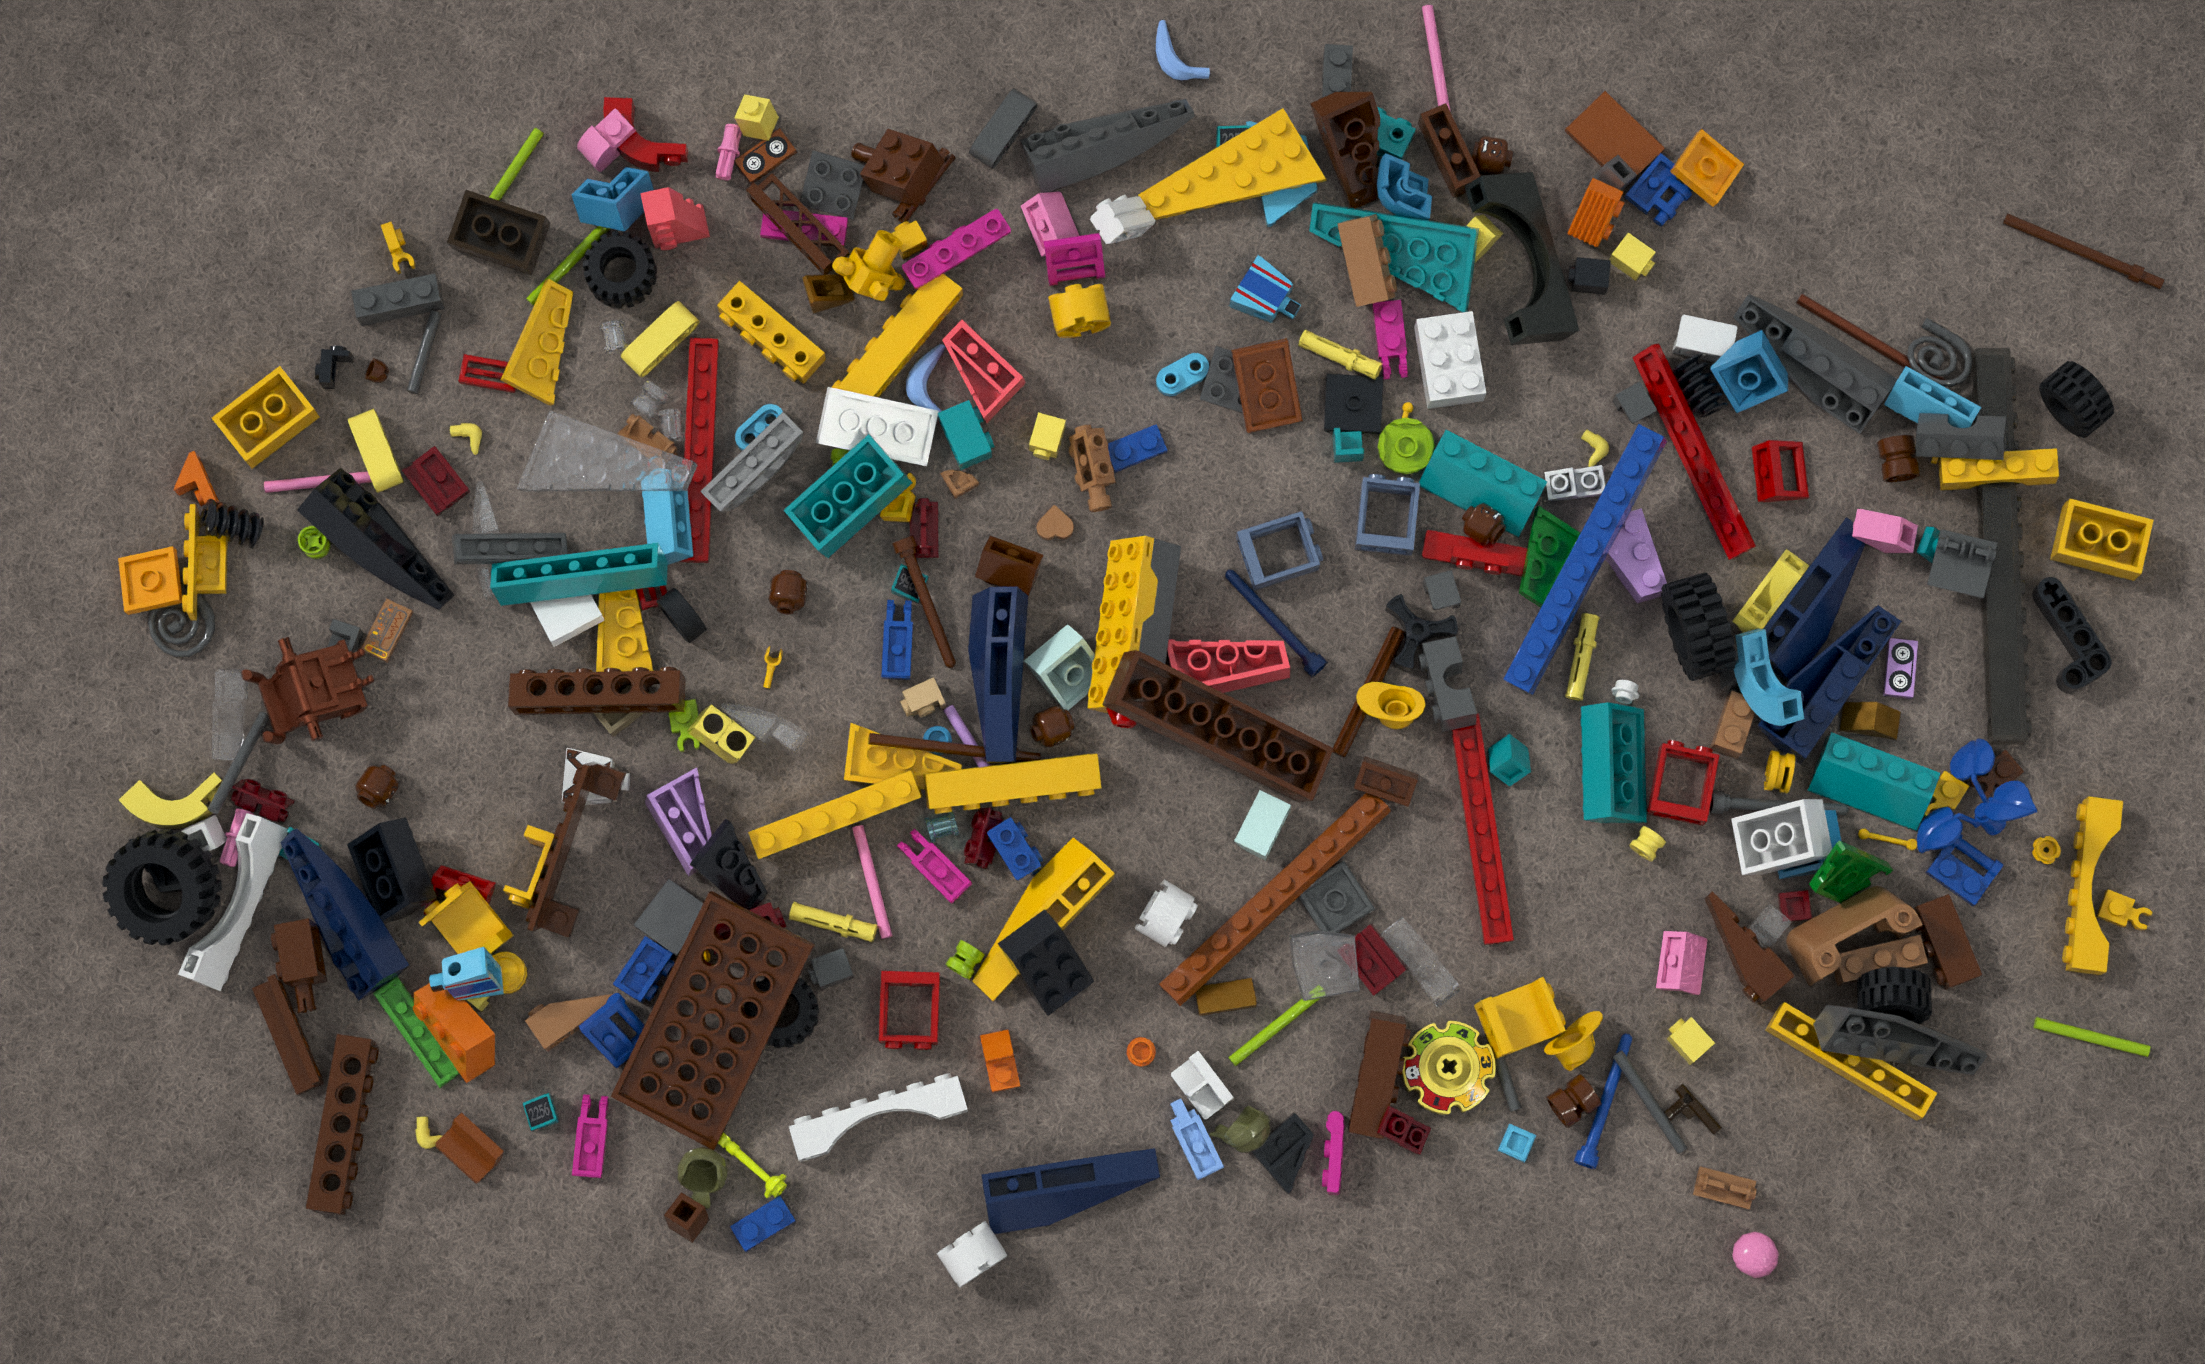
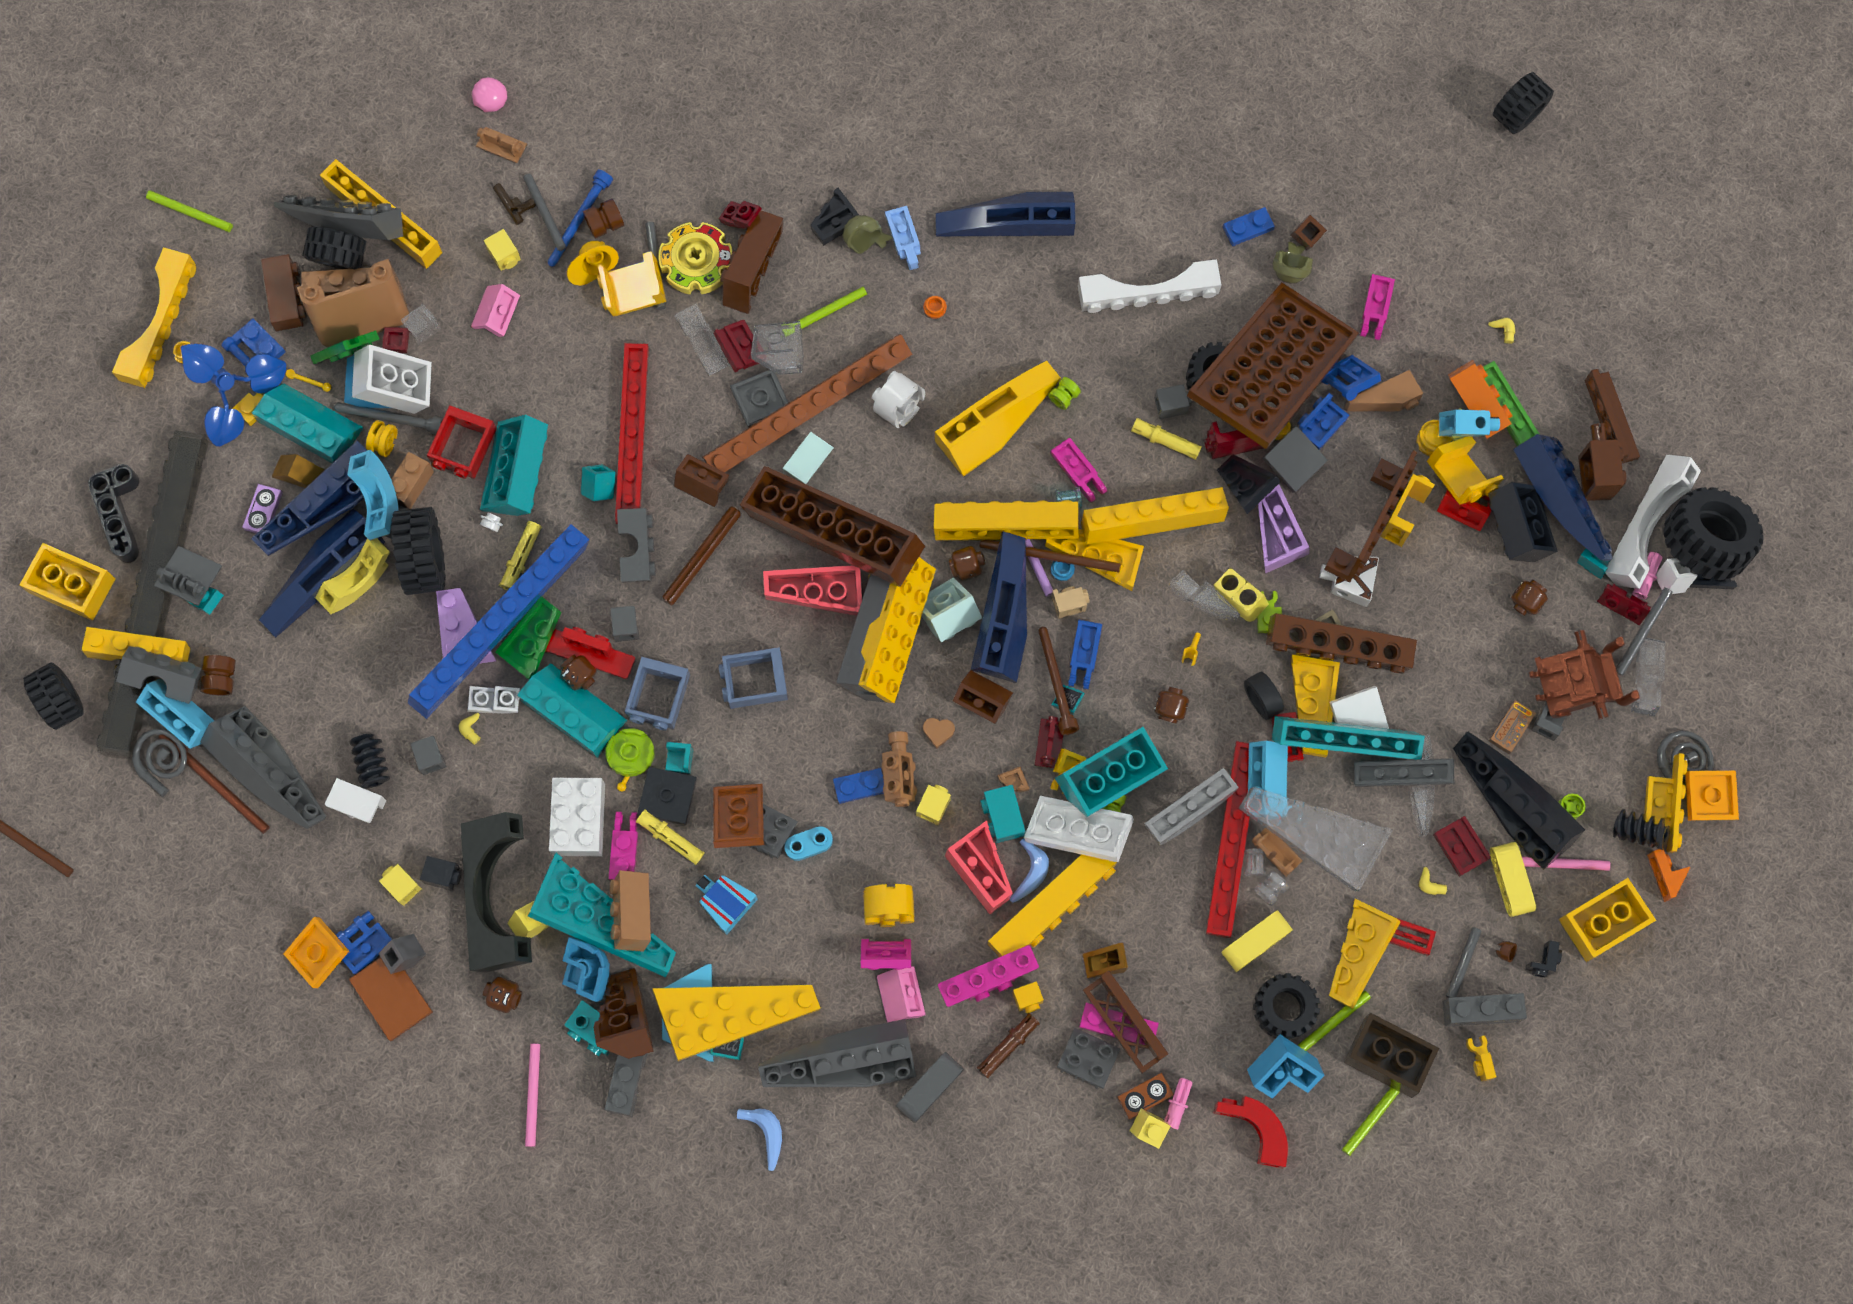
camera: 170 degrees left, 5 degrees down
(171, 814) = (1708, 602): light yellow arch -> none
(345, 1050) = (1592, 290): reddish brown brick -> none
(469, 1148) = (1474, 310): dark orange panel -> none
(540, 1112) = (1414, 331): slope -> none
(601, 142) = (1287, 1126): bright pink brick -> none
(614, 337) = (1296, 948): clear bush -> none
(672, 218) = (1235, 1040): coral wedge -> none
(756, 424) = (1178, 849): medium azure plate -> none
(770, 332) = (1159, 931): yellow brick -> none
(774, 1185) = (1236, 250): neon yellow piece -> none
(870, 270) = (1065, 968): yellow piece -> none
(872, 882) = (1129, 461): bright pink bar -> none
(899, 166) = (1029, 1060): reddish brown brick -> none
(907, 978) = (1112, 384): red window -> none
(972, 1254) = (1089, 172): white brick -> none
(977, 848) = (1041, 477): dark red hinge -> none
(1000, 1061) = (1047, 317): orange slope -> none
(1014, 850) = (1012, 468): blue bracket -> none
(1046, 962) = (1001, 370): black brick -> none
(1122, 219) = (838, 980): white brick -> none
(1201, 1086) = (891, 275): white panel -> none
(1226, 997) = (860, 336): pearl gold slope -> none
(1312, 662) = (743, 584): dark blue piece -> none
(1334, 1151) = (797, 211): dark pink hinge -> none
(1390, 703) = (685, 537): yellow piece -> none
(1416, 631) = (651, 595): black piece -> none
(1448, 149) = (538, 1002): reddish brown brick -> none
(1516, 1143) = (654, 200): medium azure tile -> none
(1595, 213) = (422, 923): orange brick -> none
(1647, 843) = (501, 401): light yellow wheel -> none
(1694, 451) = (388, 710): red plate -> none
(1750, 372) = (322, 763): dark azure slope -> none
(1757, 968) = (438, 295): reddish brown wedge -> none
(1769, 471) = (328, 684): red tile -> none
(1885, 531) = (245, 612): bright pink slope -> none
(2003, 771) = (197, 415): reddish brown plate -> none
(2118, 910) = (139, 300): yellow plate -> none

